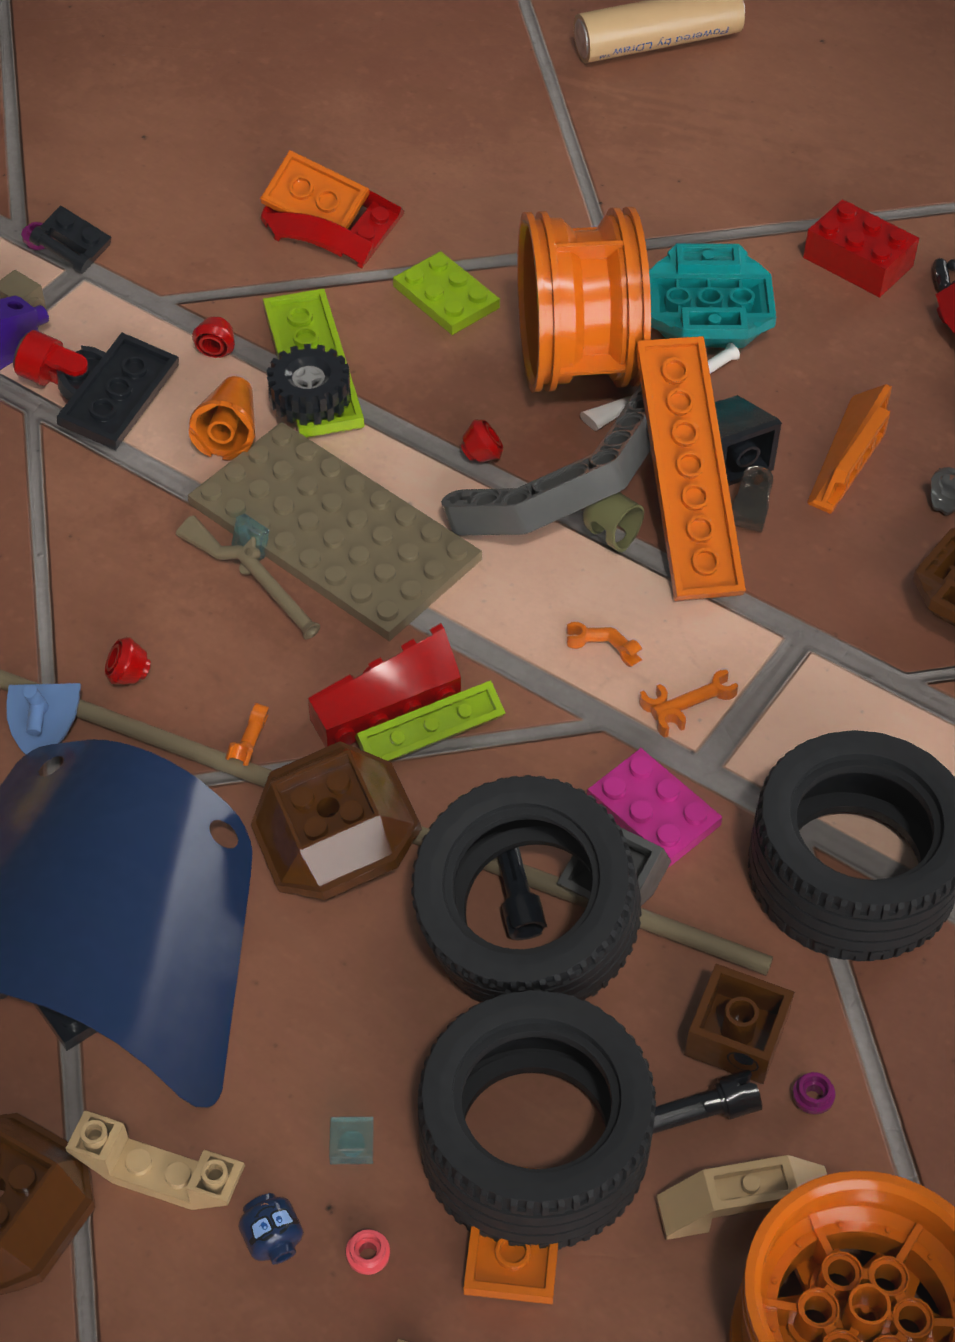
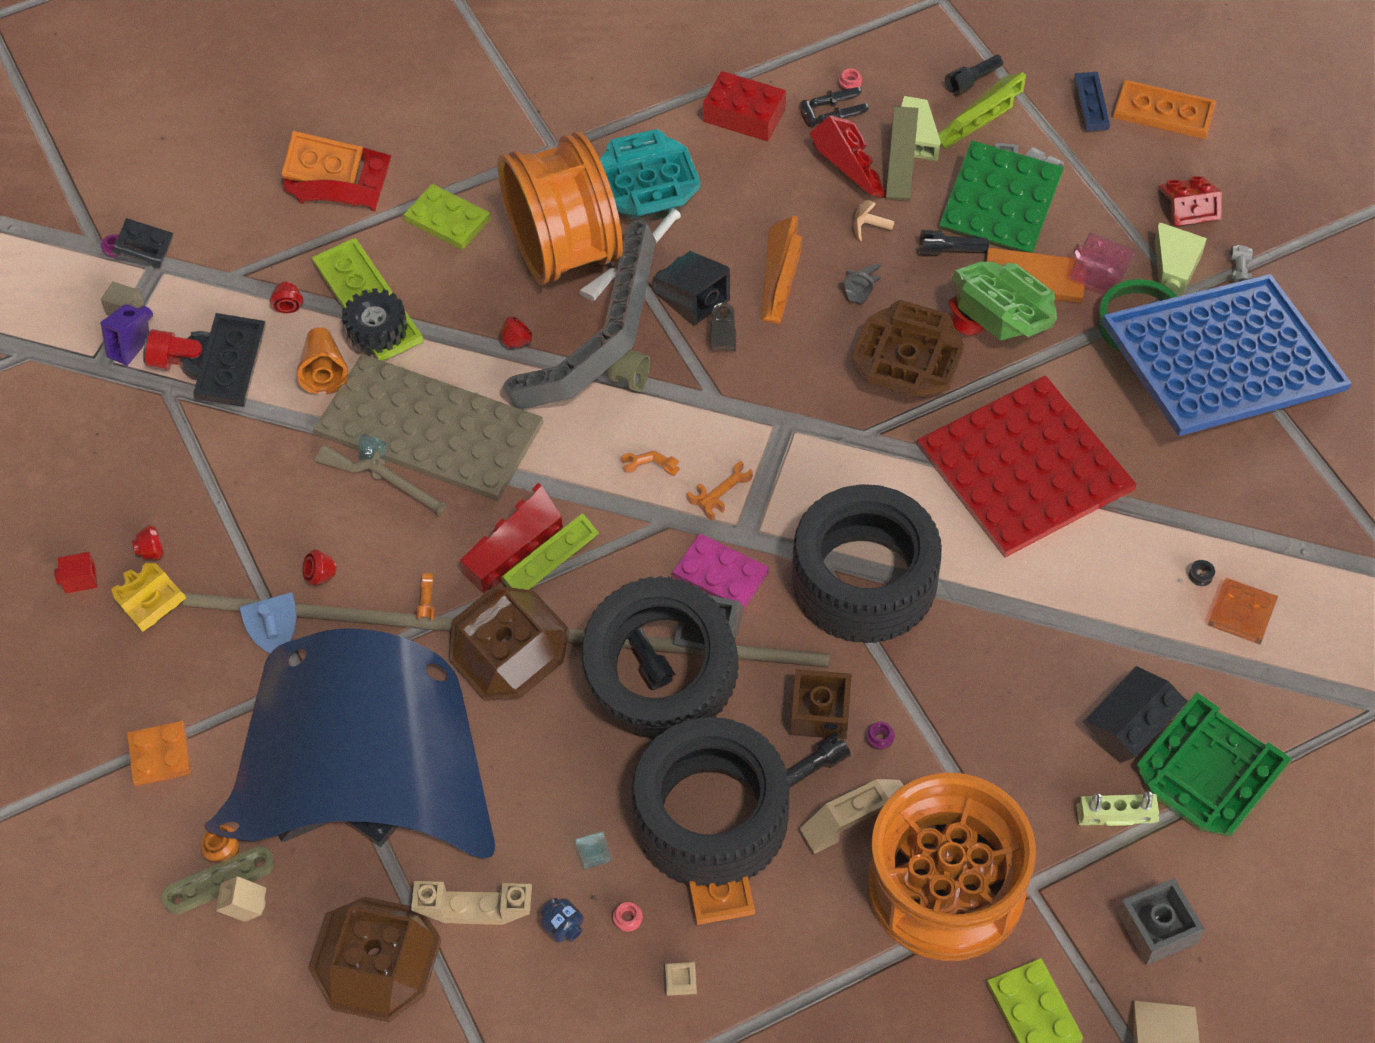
camera: 15 degrees left, 5 degrees up
(689, 469) = (674, 318): orange plate -> none

